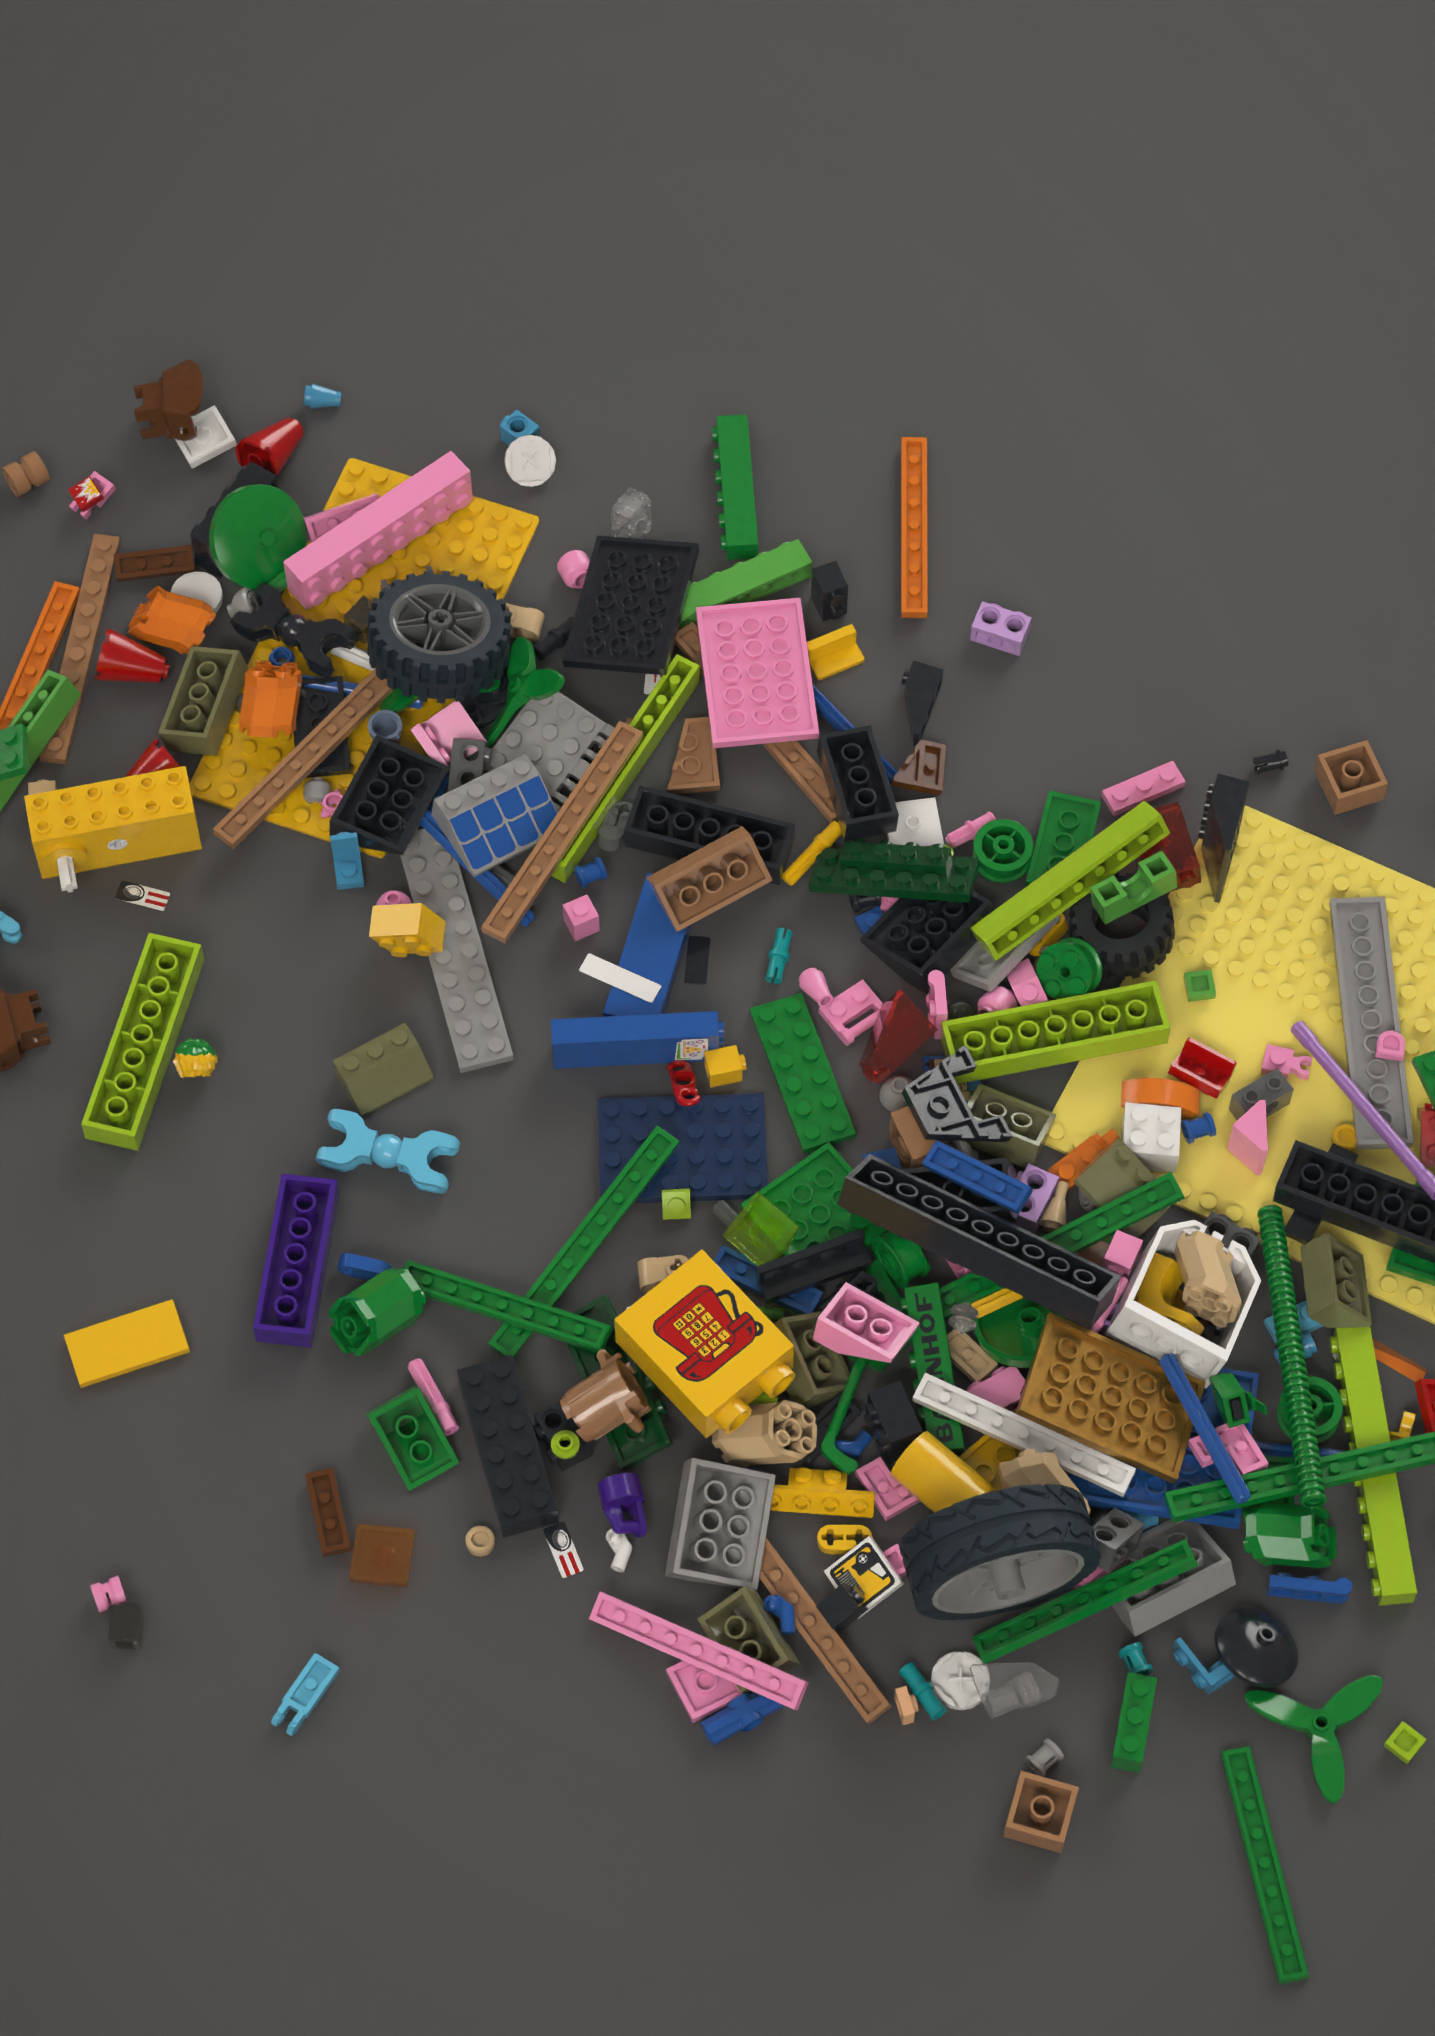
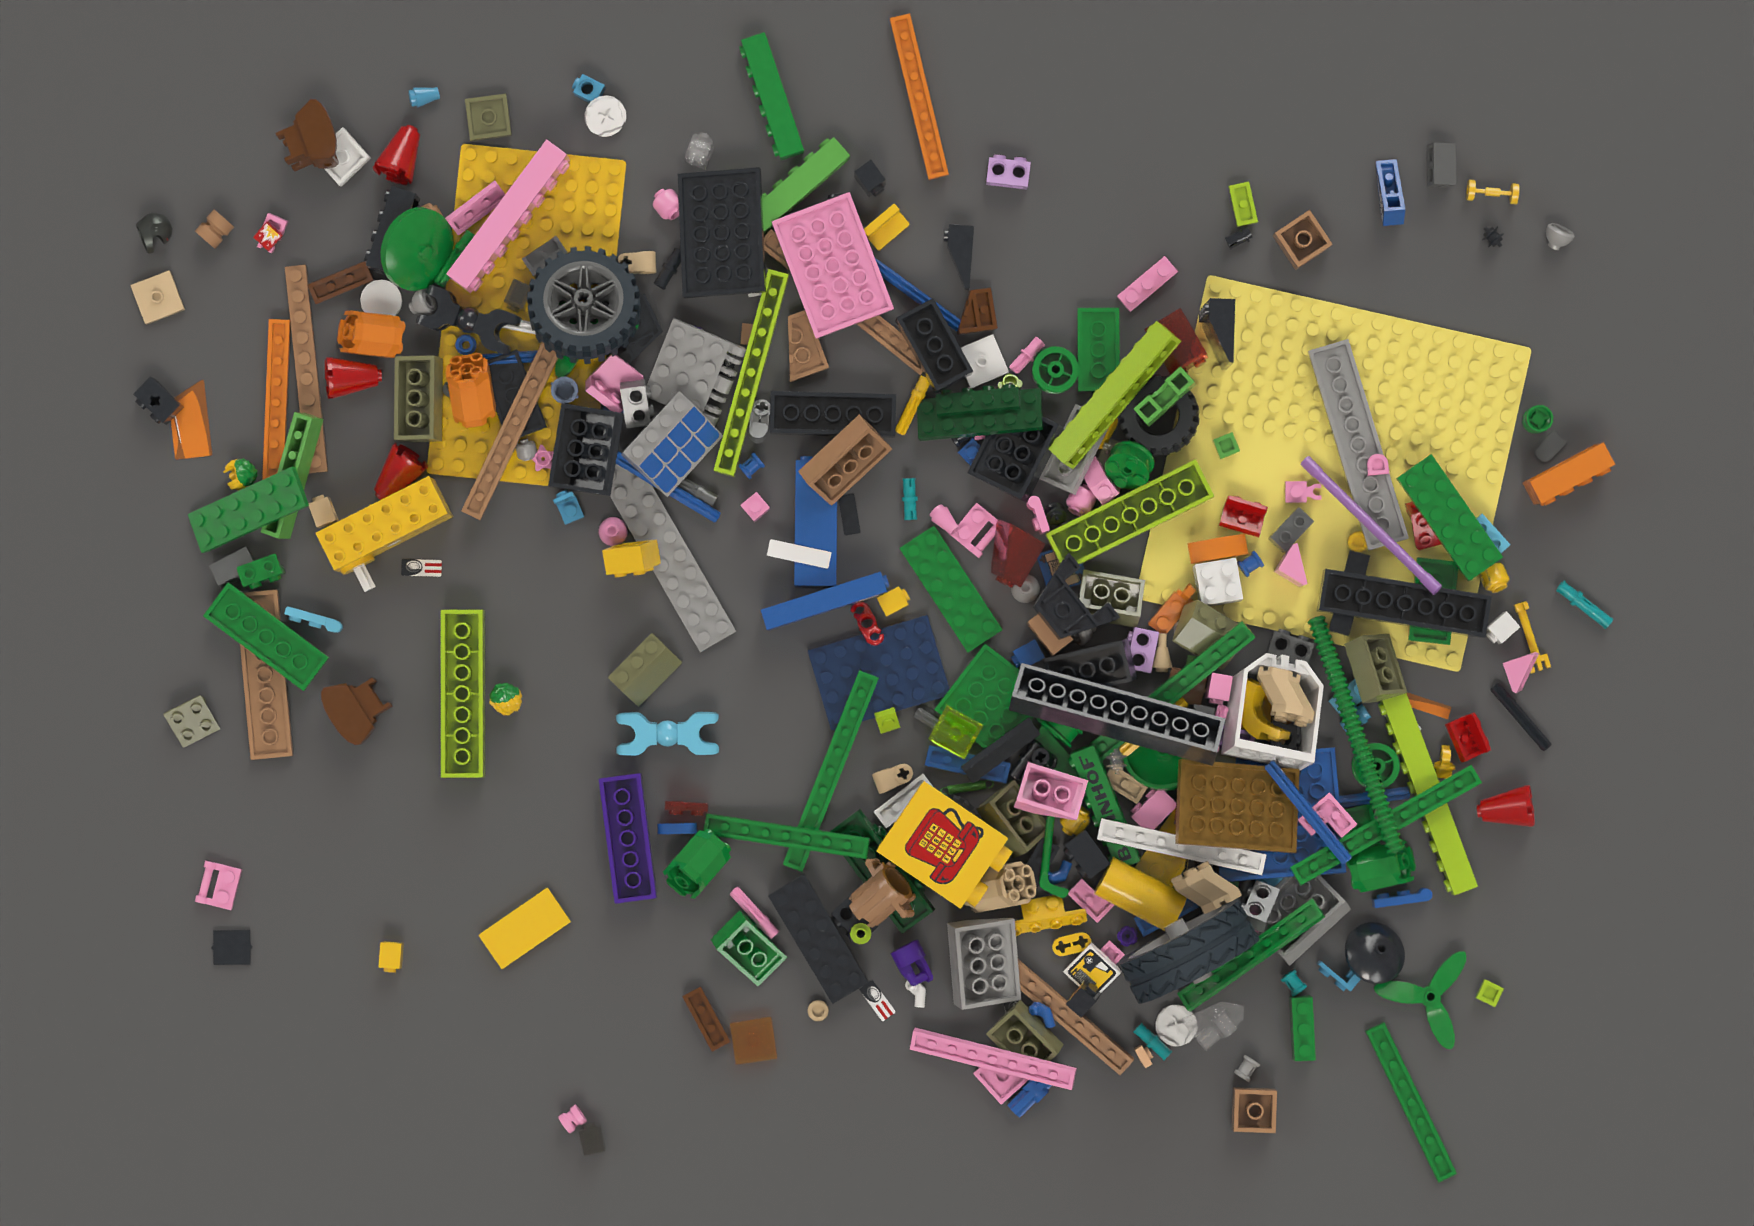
camera: 20 degrees left, 25 degrees up
(306, 1692) = (731, 1151): medium azure hinge -> none
(374, 1238) = (678, 807): none -> clear red plate
(390, 435) = (488, 117): none -> olive plate
(524, 684) = (658, 329): green piece -> none
(562, 832) = (725, 448): medium nougat plate -> none
(888, 1374) = (1076, 826): none -> yellow head
(977, 1177) = (1104, 662): blue plate -> none
(1232, 1400) = (1319, 780): green piece -> none
(1284, 726) = (1243, 204): none -> lime plate

